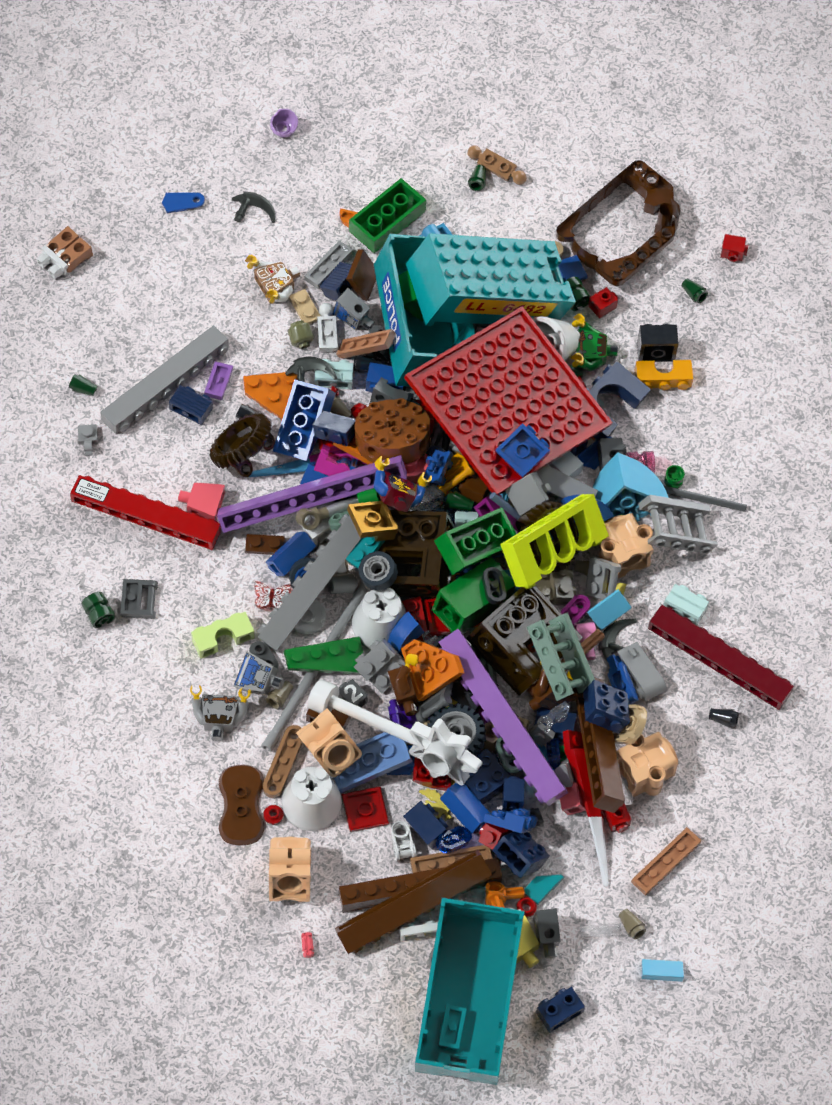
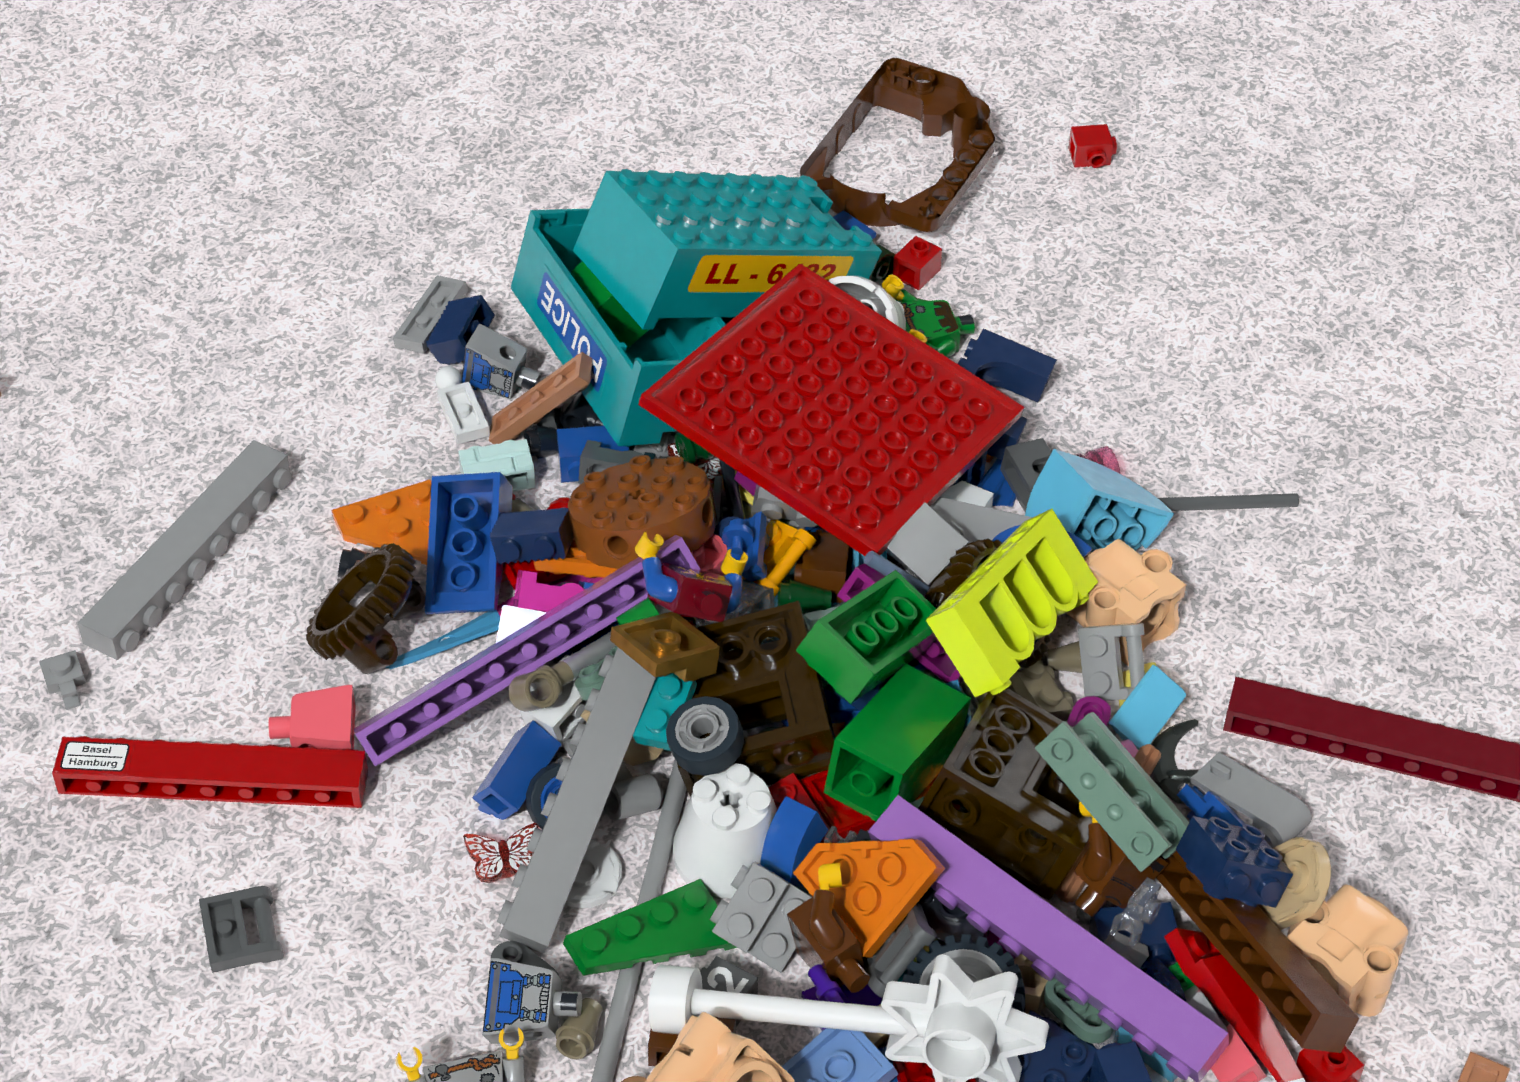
camera: 15 degrees left, 15 degrees down
(82, 385) = (31, 594): dark green cone -> none
(98, 610) = (161, 968): dark green wheel -> none
(182, 201) = (142, 283): blue piece -> none
(190, 404) = (248, 575): dark blue brick -> none
(218, 380) = (288, 528): medium lavender plate -> none
(236, 626) = (453, 926): yellowish green arch -> none
(253, 199) = (264, 255): pearl dark grey piece -> none
(263, 544) = (457, 770): reddish brown plate -> none
(273, 278) = (338, 354): torso -> none
(281, 118) = (286, 132): lavender hair -> none
(300, 334) = (415, 422): olive head -> none
(304, 306) = (408, 385): tan plate -> none
(309, 363) = (449, 456): pearl dark grey piece -> none
(345, 215) = (440, 244): orange tile -> none
(362, 275) = (495, 305): reddish brown tile -> none
(387, 215) = (493, 228): green brick -> none
(478, 178) = (638, 140): dark green cone -> none
(494, 587) = (938, 708): black plate -> none
(497, 164) = (662, 122): medium nougat plate -> none
(523, 450) = (897, 468): blue plate -> none
(657, 343) = (1036, 292): black brick -> none
(674, 476) = (1157, 476): green wheel -> none
(679, 377) = (1090, 334): light orange arch -> none
(684, 510) = (1206, 519): light grey fence -> none
(687, 603) = (1276, 664): light aqua brick -> none
(695, 291) = (1059, 216): dark green cone -> none
(726, 717) = (1438, 837): black cone -> none

